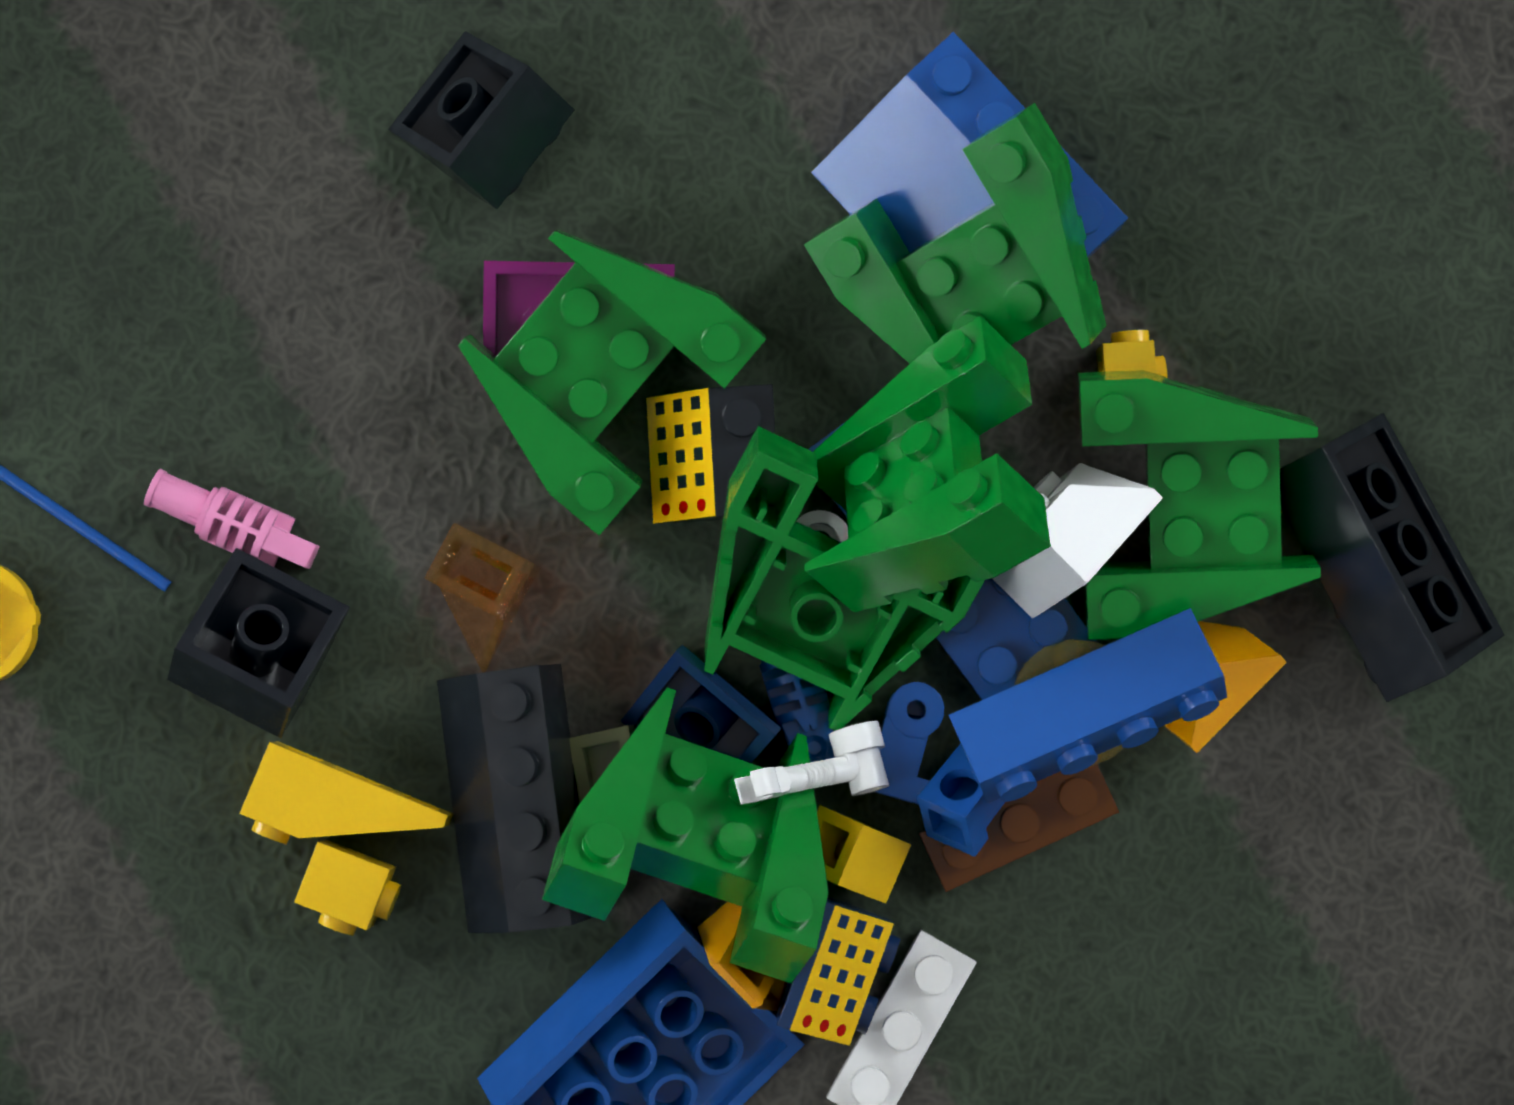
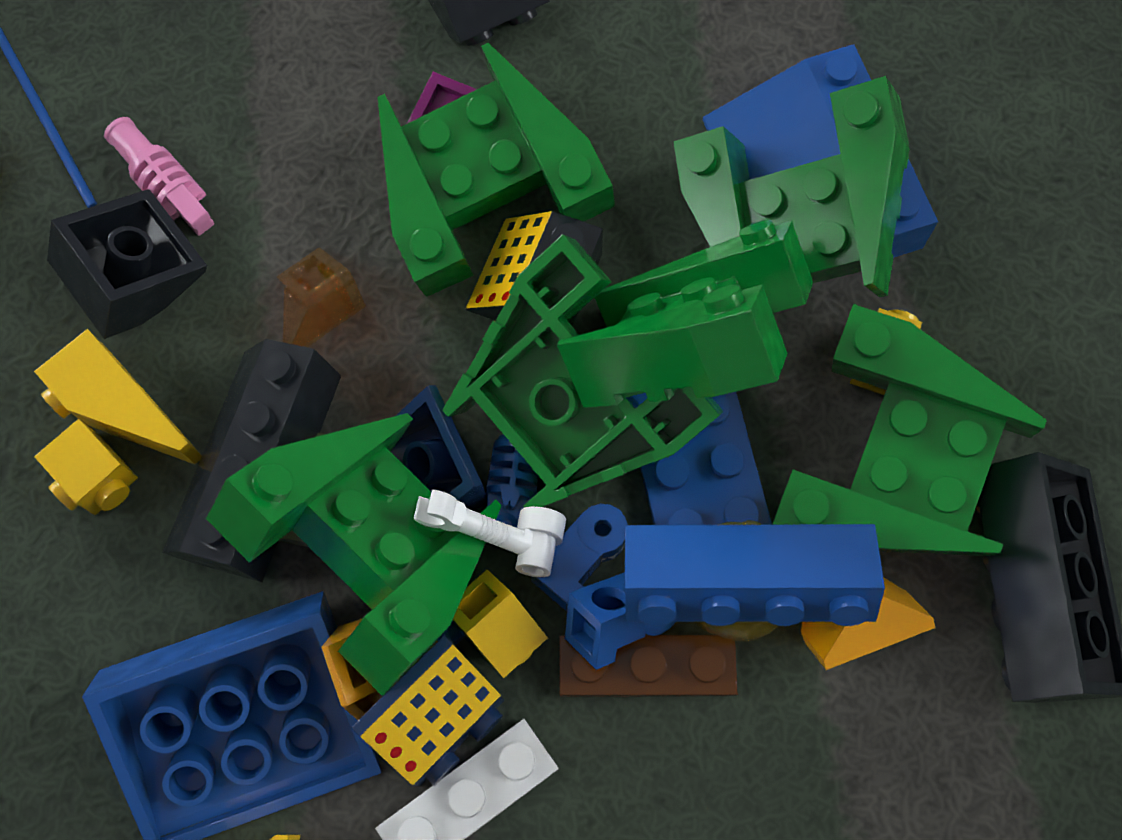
camera: 30 degrees right, 15 degrees down
(1087, 522) = (785, 431): white slope -> none

